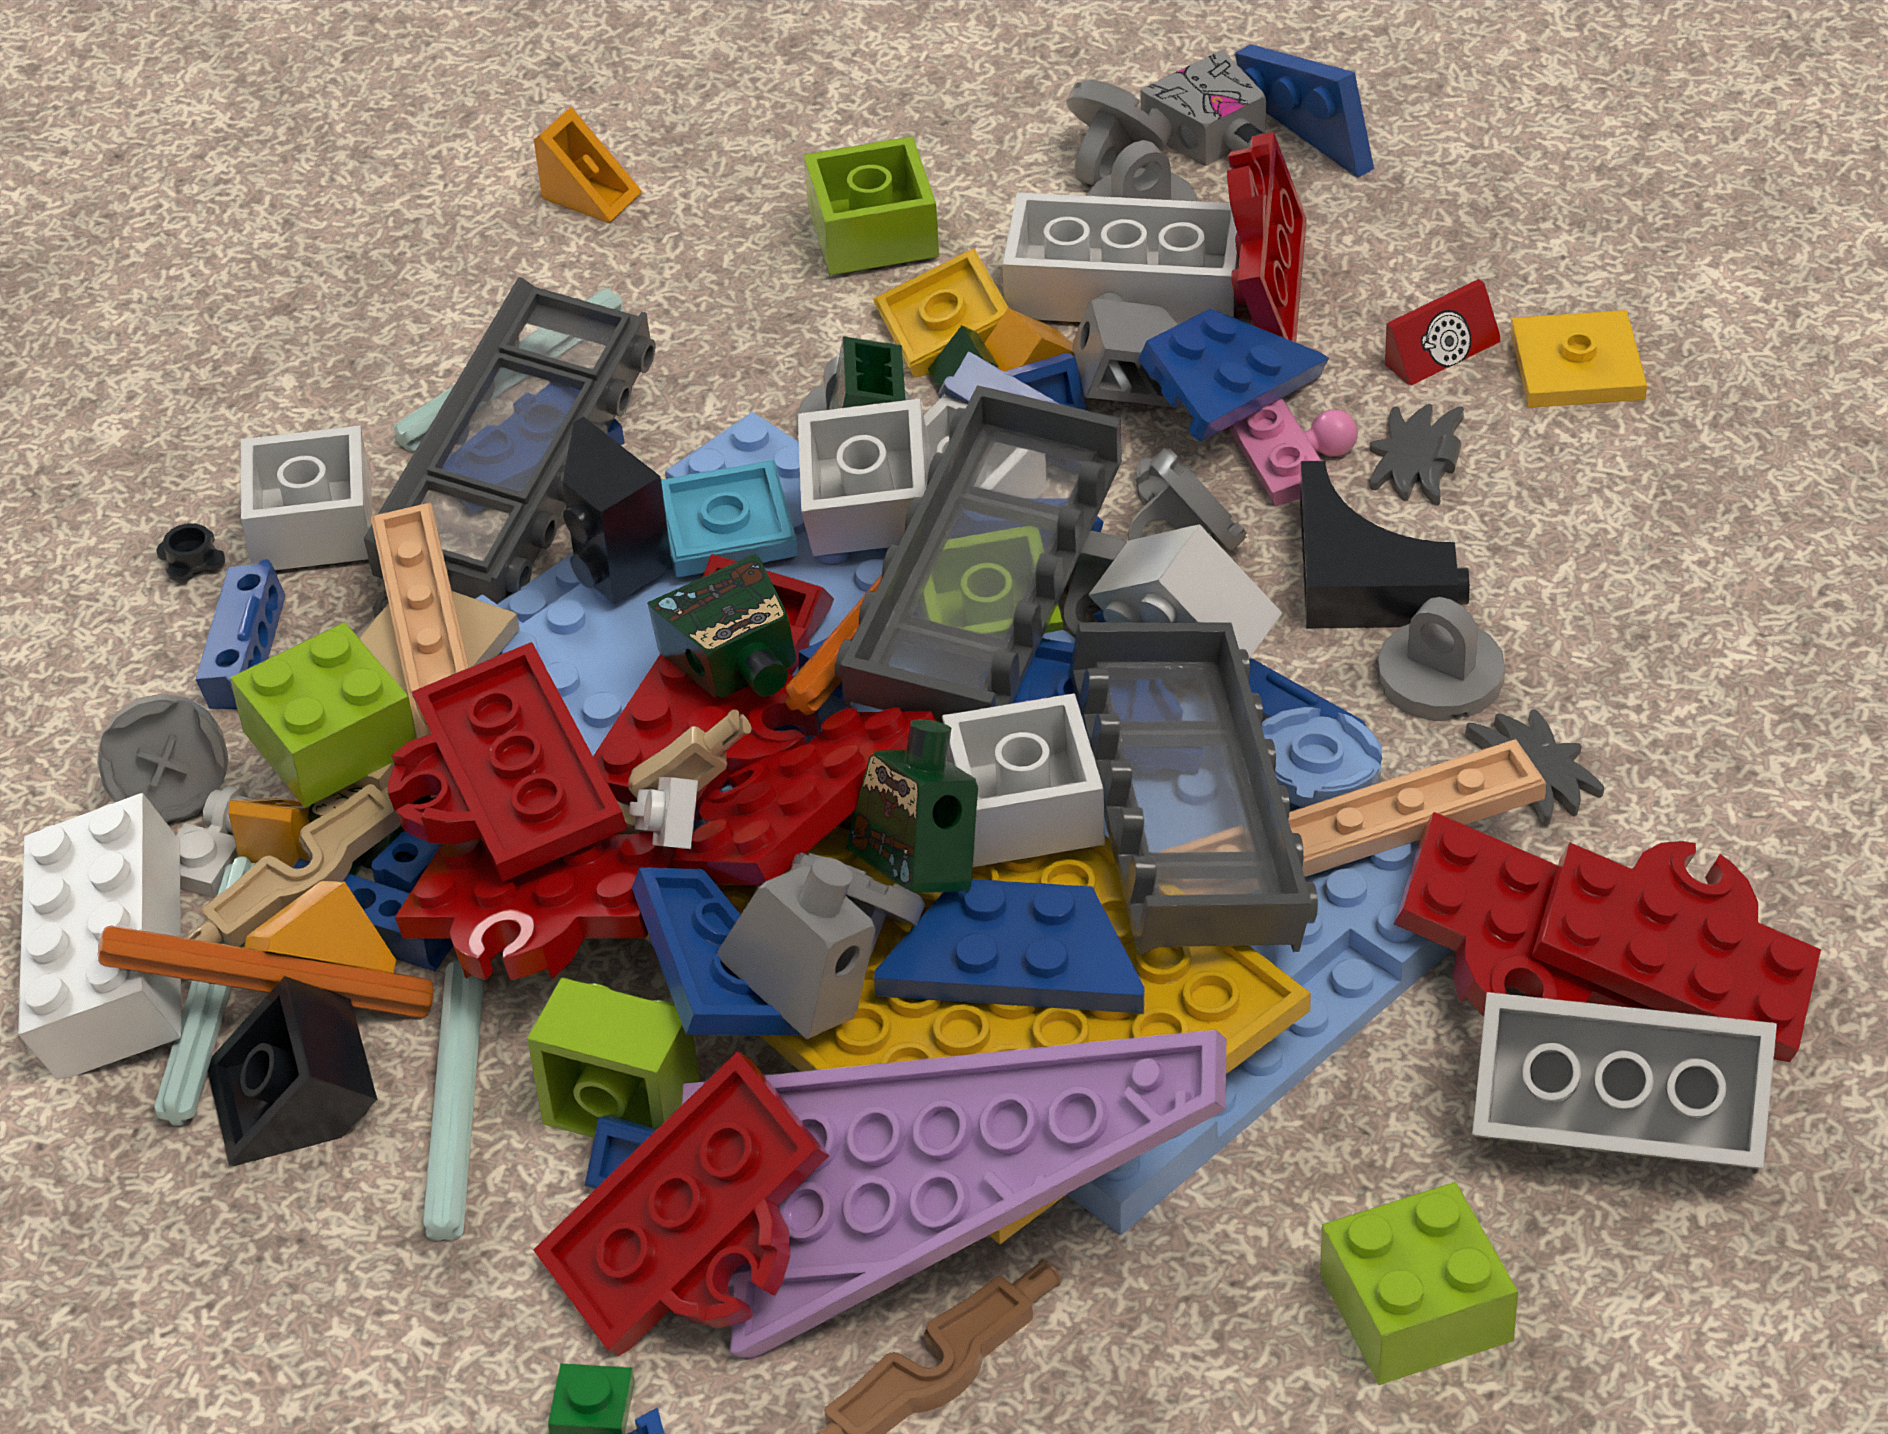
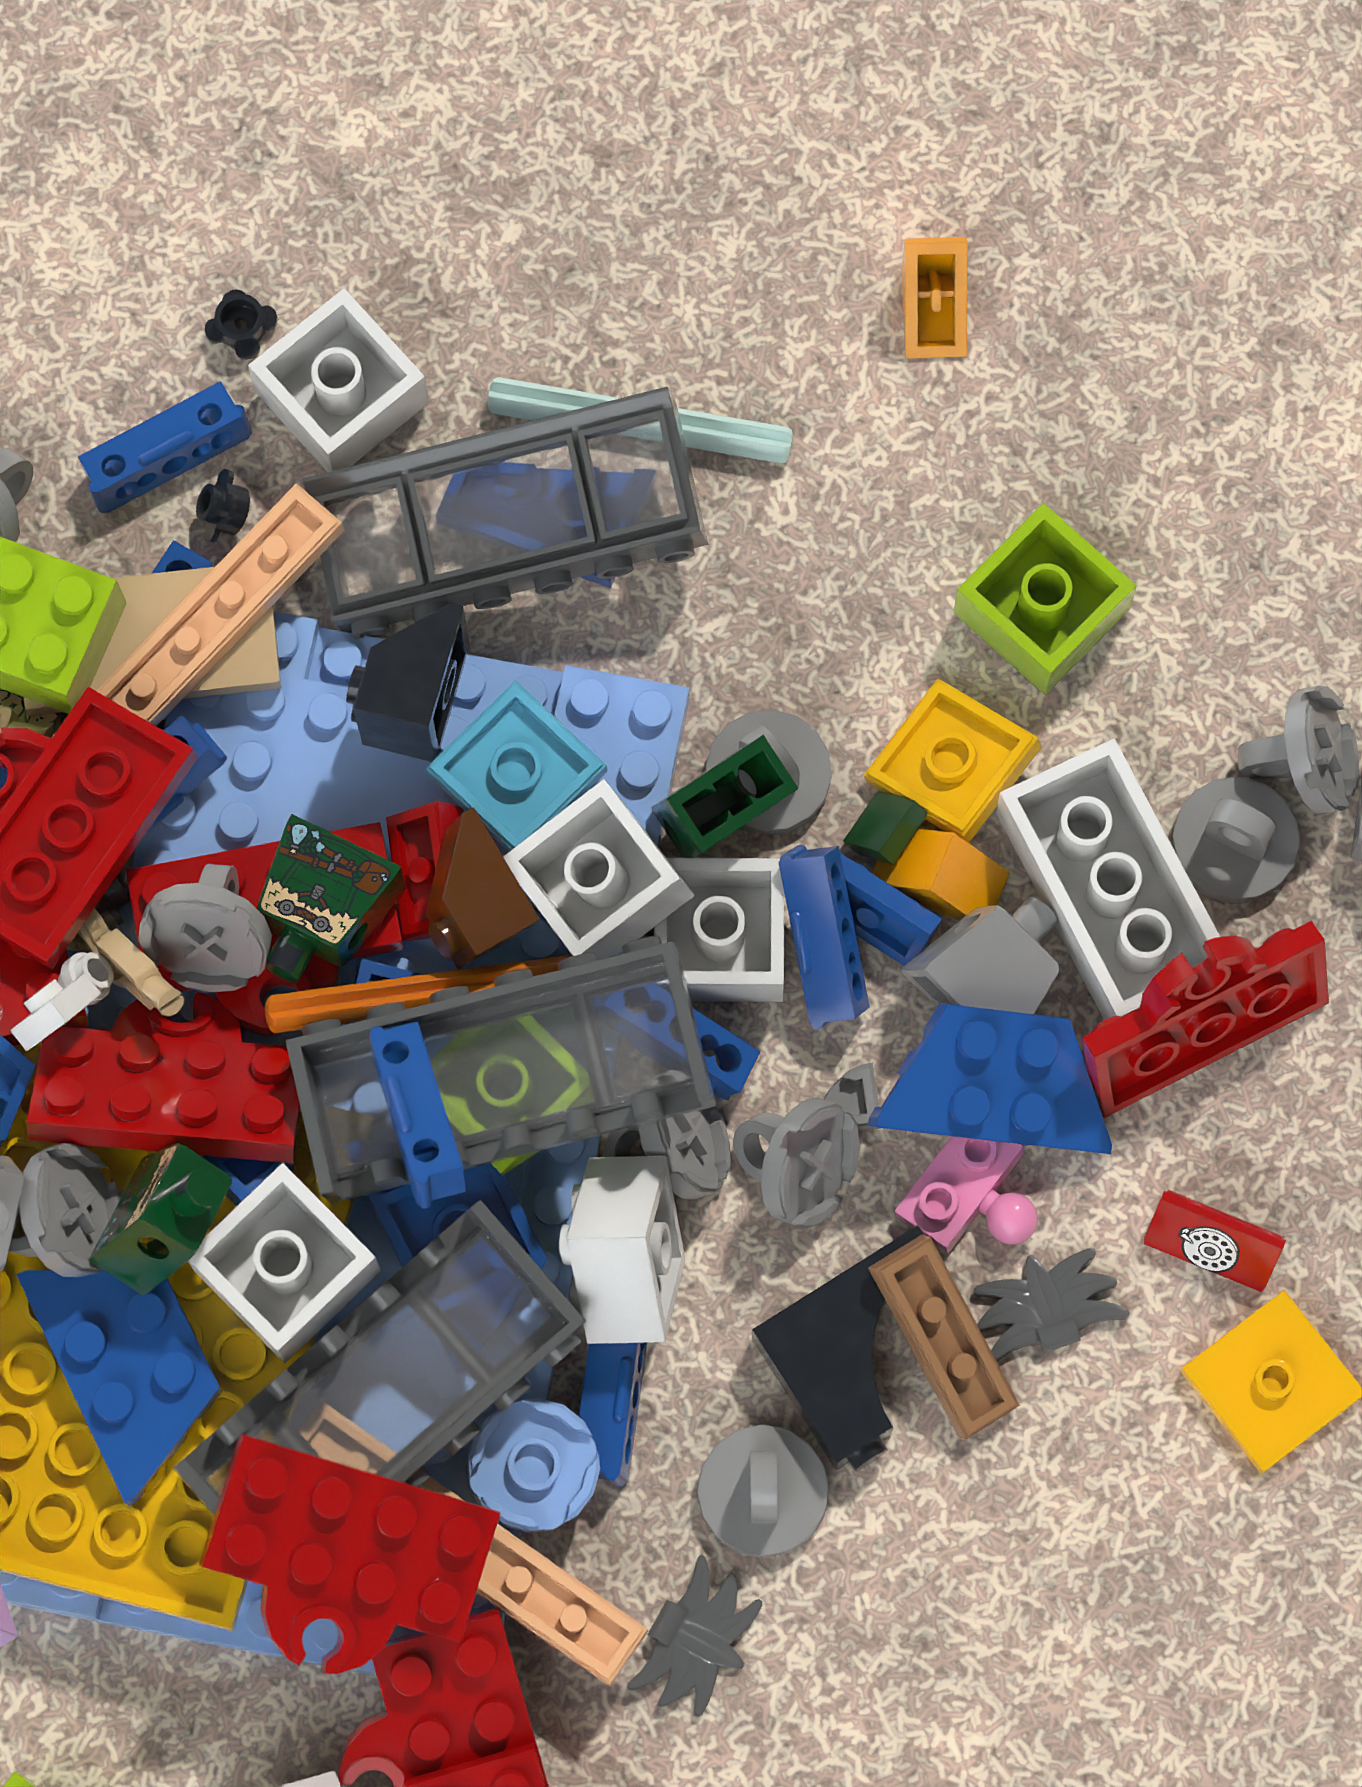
camera: 55 degrees right, 30 degrees up
(326, 612) = (222, 507): none -> black plate
(697, 684) = (206, 932): none -> light grey tile
(809, 545) = (474, 895): none -> reddish brown slope
(978, 599) = (417, 1113): none -> blue piece
(1311, 841) = (345, 1551): none -> red plate
(1401, 492) = (944, 1336): none -> medium nougat tile

